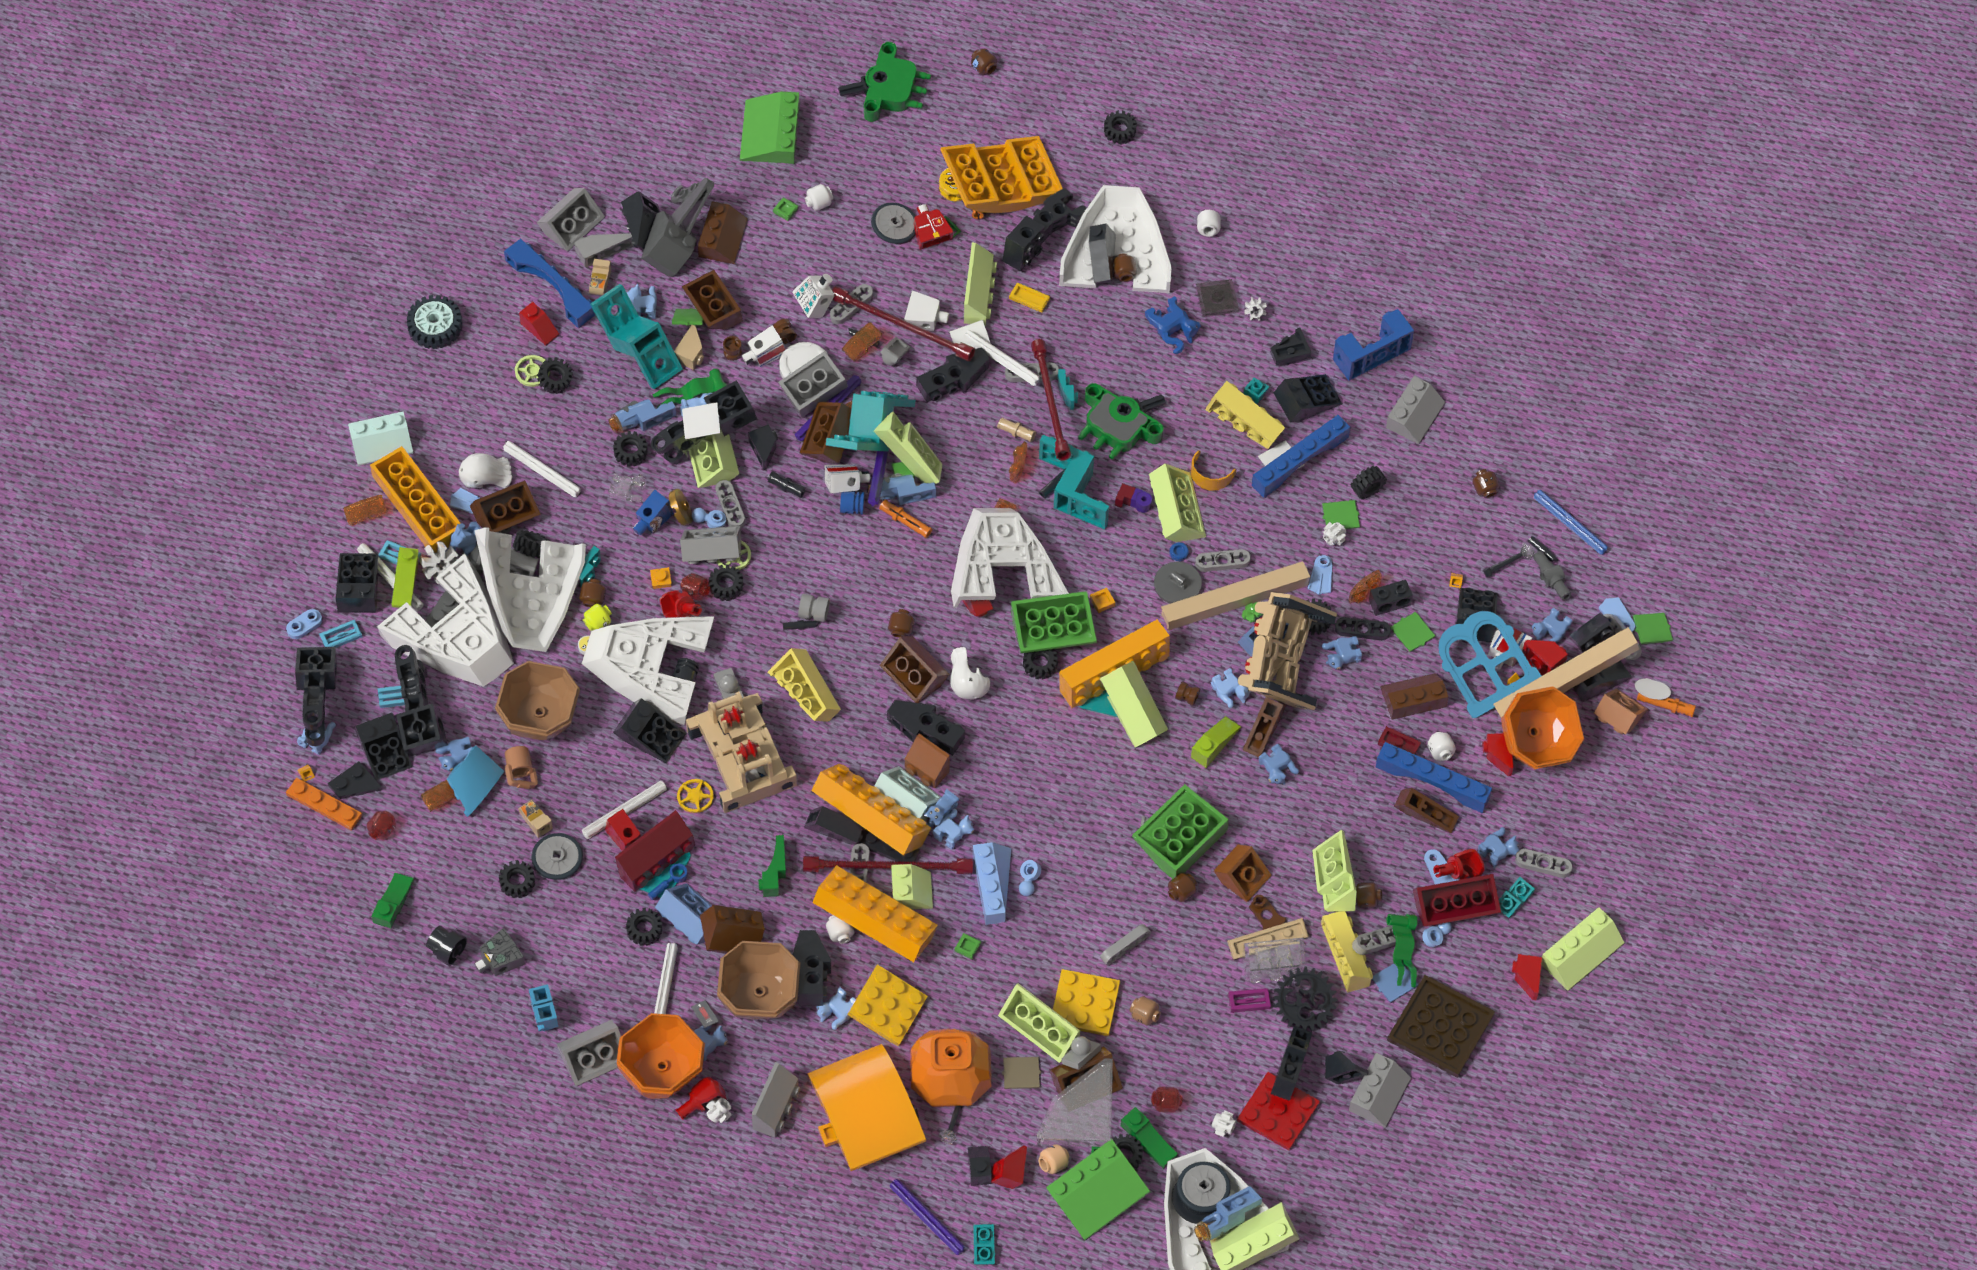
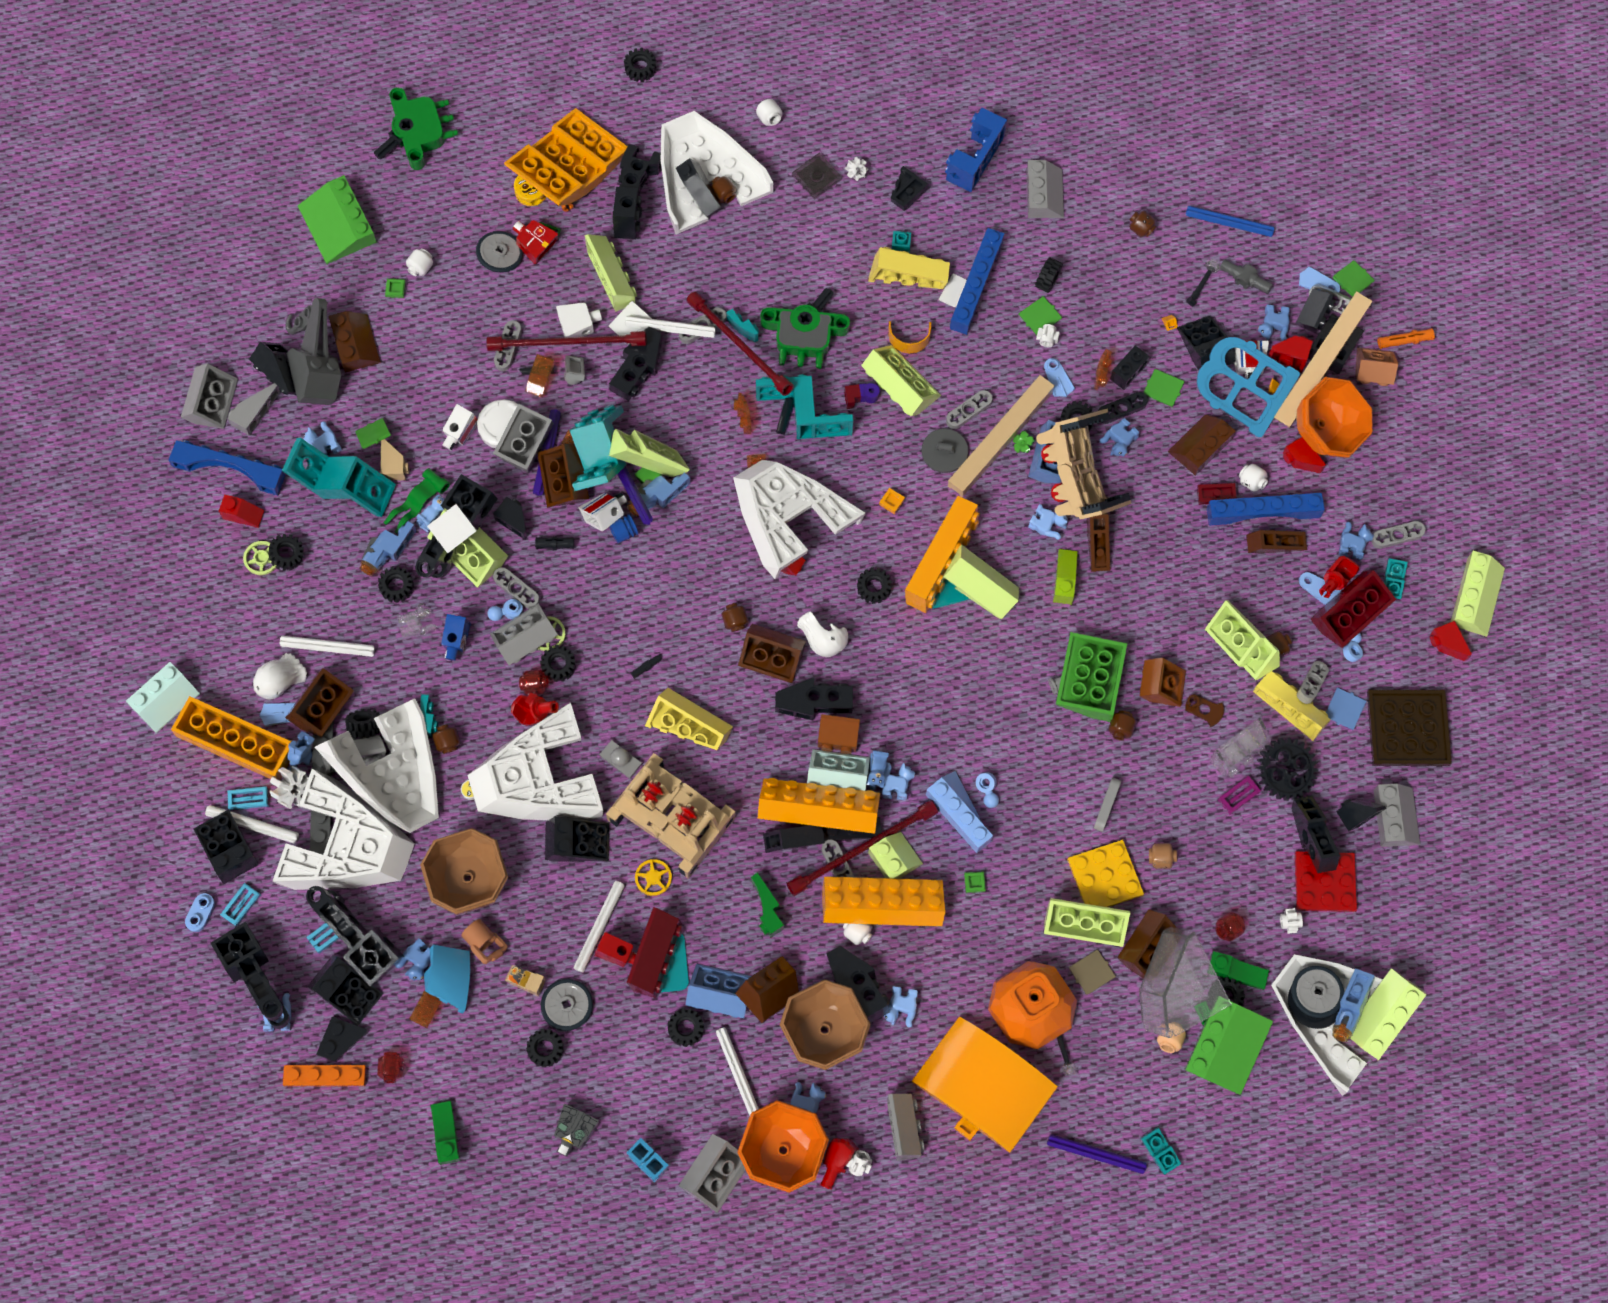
camera: 30 degrees left, 10 degrees up
(305, 772) = (288, 1054): light orange piece -> none
(364, 509) = (190, 772): clear orange slope -> none
(405, 576) = (268, 819): lime slope -> none
(430, 310) = (136, 548): wheel -> none
(446, 944) = (521, 1148): black piece -> none
(597, 617) = (464, 759): neon yellow head -> none
(600, 277) = (269, 438): tan leg -> none
(660, 578) = (497, 690): light orange plate -> none
(665, 884) = (679, 976): blue piece -> none
(682, 507) = (477, 615): pearl gold plate -> none
(686, 669) = (574, 766): black piece -> none
(704, 1014) = (789, 1078): sticker -> none
(713, 301) = (387, 408): reddish brown slope -> none
(732, 348) = (426, 439): reddish brown wheel -> none
(784, 330) = (465, 401): reddish brown wheel -> none
(814, 295) = (473, 355): white torso -> none
(814, 607) = (652, 644): light grey wheel -> none
(887, 507) = (700, 519): orange pin -> none
(887, 1005) = (943, 978): yellow plate -> none
(979, 1165) = (1111, 1079): black slope -> none
(983, 61) = (486, 64): reddish brown head -> none
(1010, 1169) = (1141, 1067): red slope -> none
(1016, 429) = (722, 385): tan pin -> none
(1029, 297) = (657, 258): yellow tile -> none
(1053, 622) = (866, 546): bright green slope -> none
(1081, 1052) = (1139, 929): light grey tile -> none
(1172, 322) = (794, 216): blue animal -> none
(1179, 551) = (927, 421): blue tile -> none
(1187, 693) = (1016, 546): reddish brown wheel -> none
(1278, 761) = (1127, 570): medium blue animal -> none
(1288, 930) = (1220, 730): tan tile -> none
(1306, 397) = (947, 225): black slope -> none
(1404, 945) = (1335, 669): green flag -> none
(1541, 547) = (1221, 256): black piece -> none
(1652, 689) = (1388, 332): white sticker -> none

